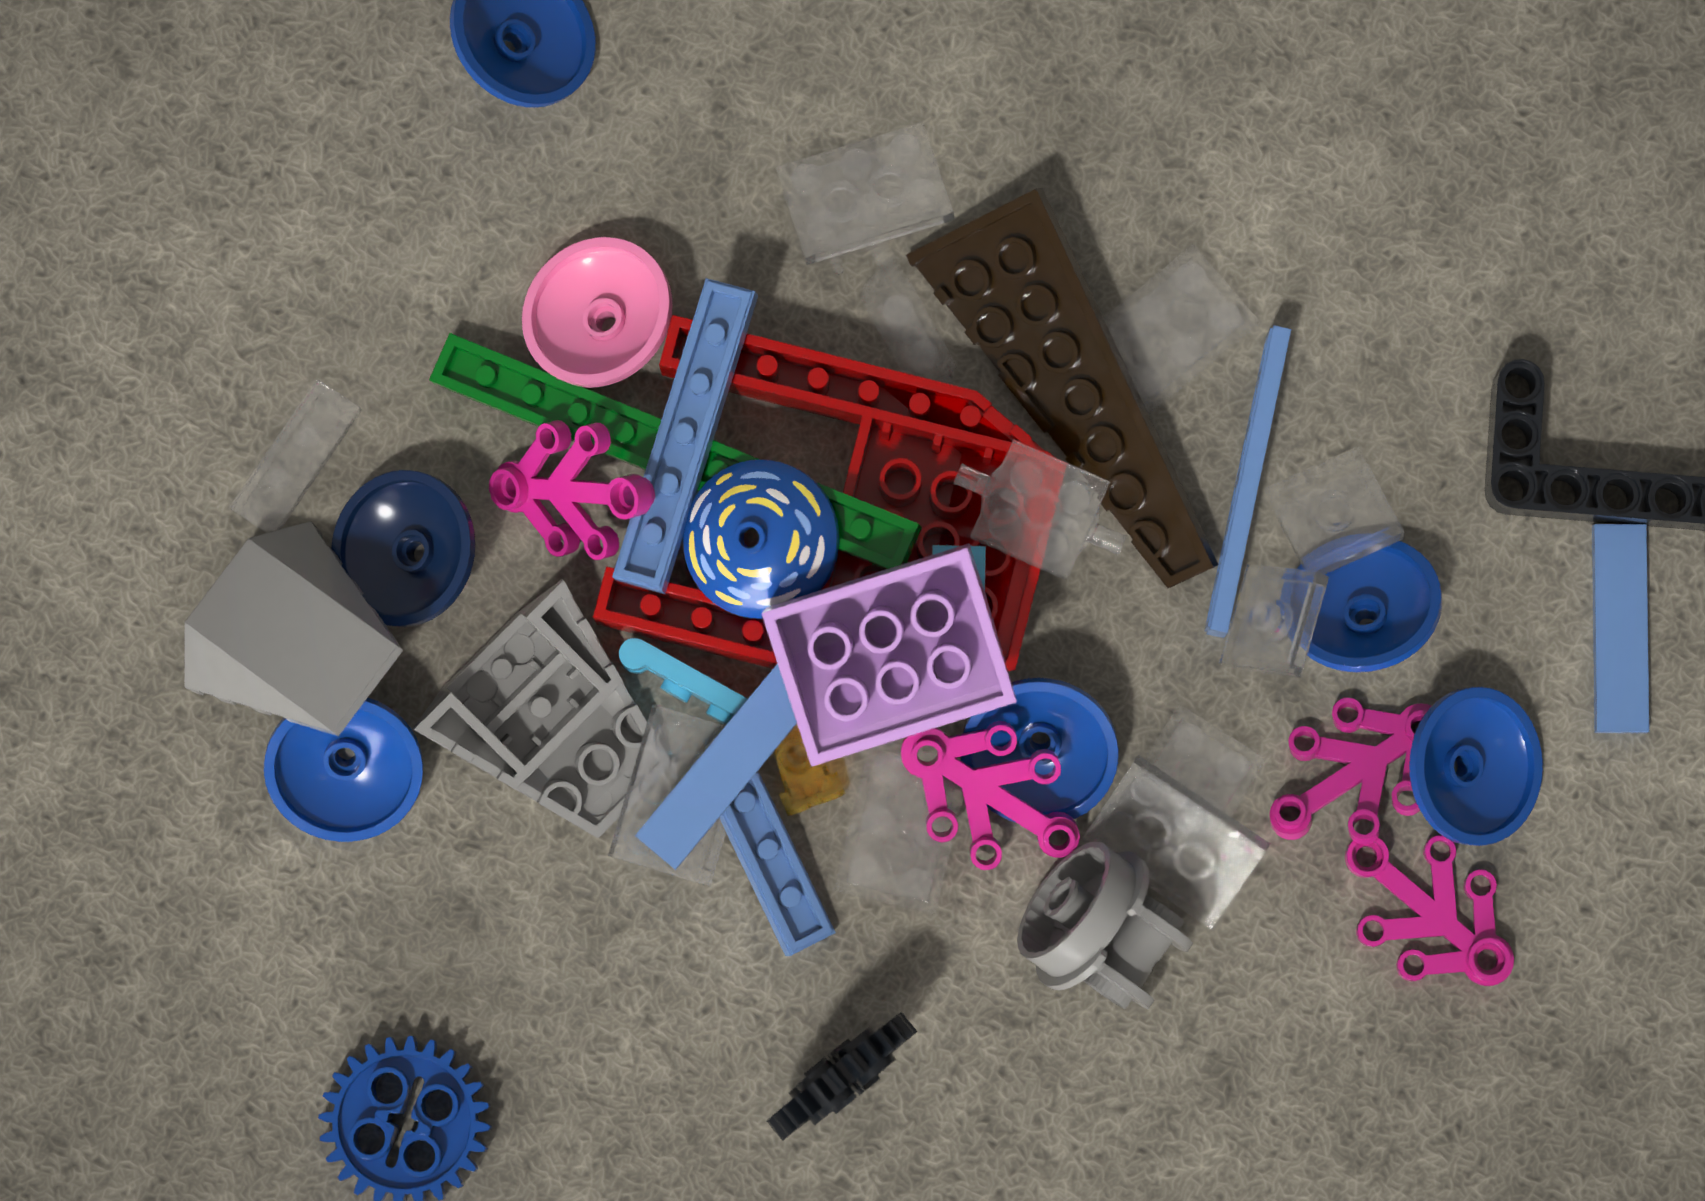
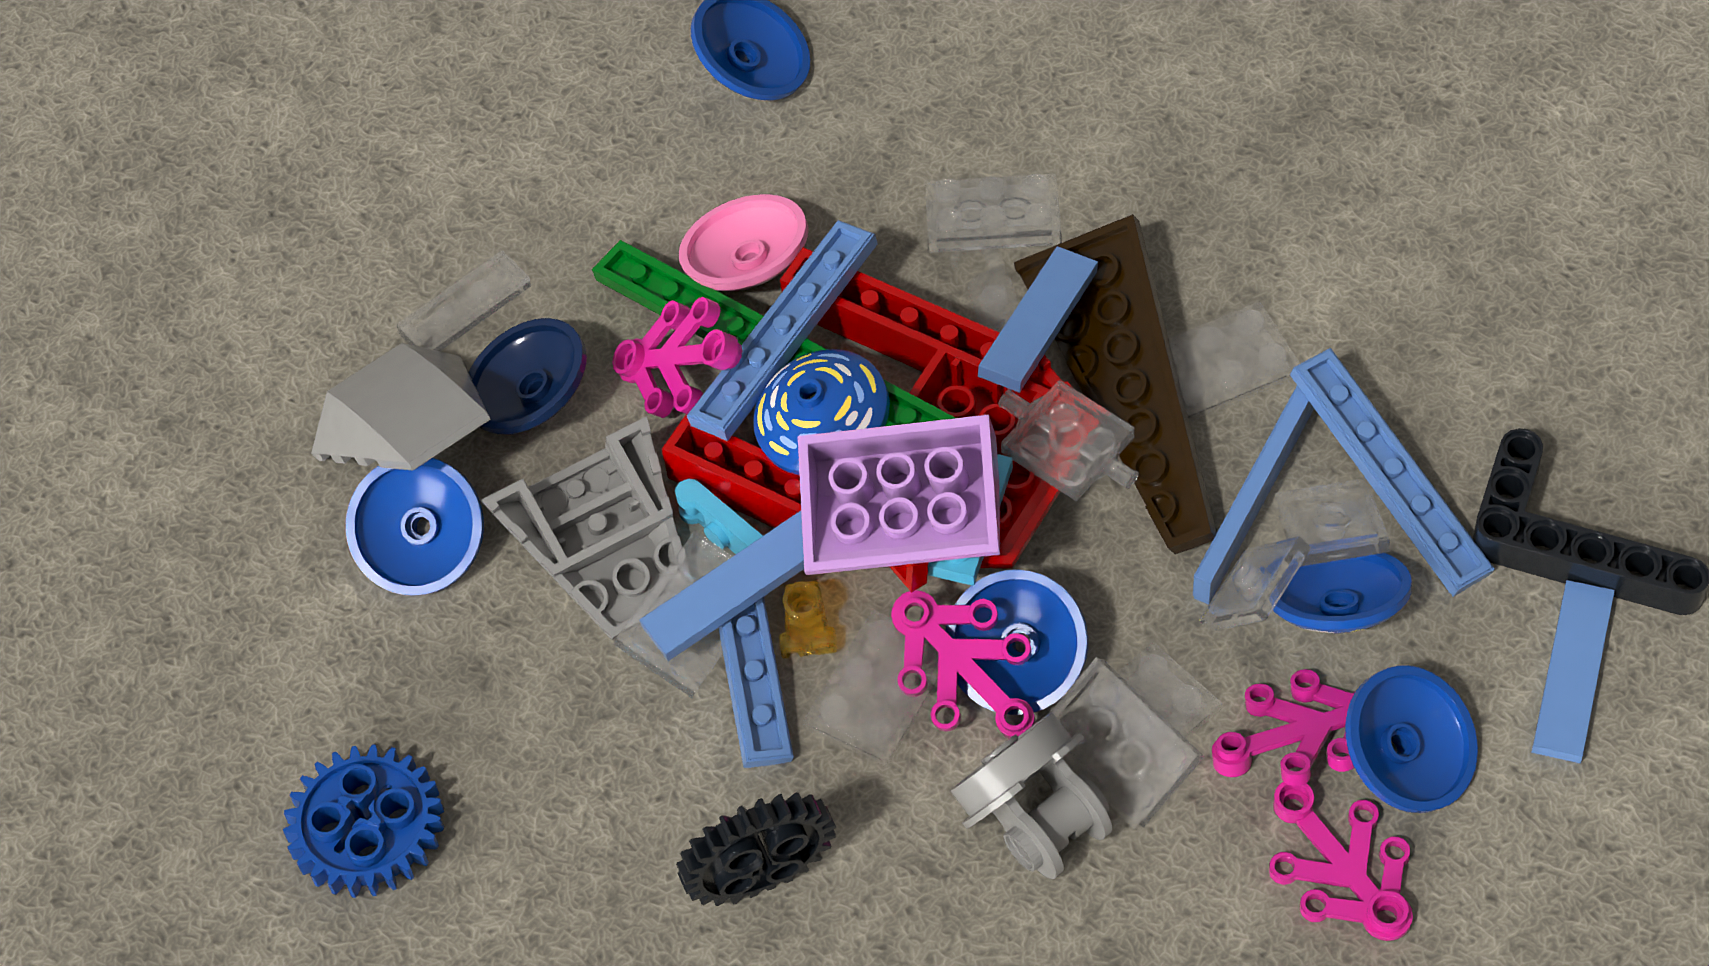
camera: 20 degrees right, 25 degrees down
(964, 352) = (1037, 319): none -> medium blue tile
(1385, 439) = (1392, 472): none -> medium blue tile

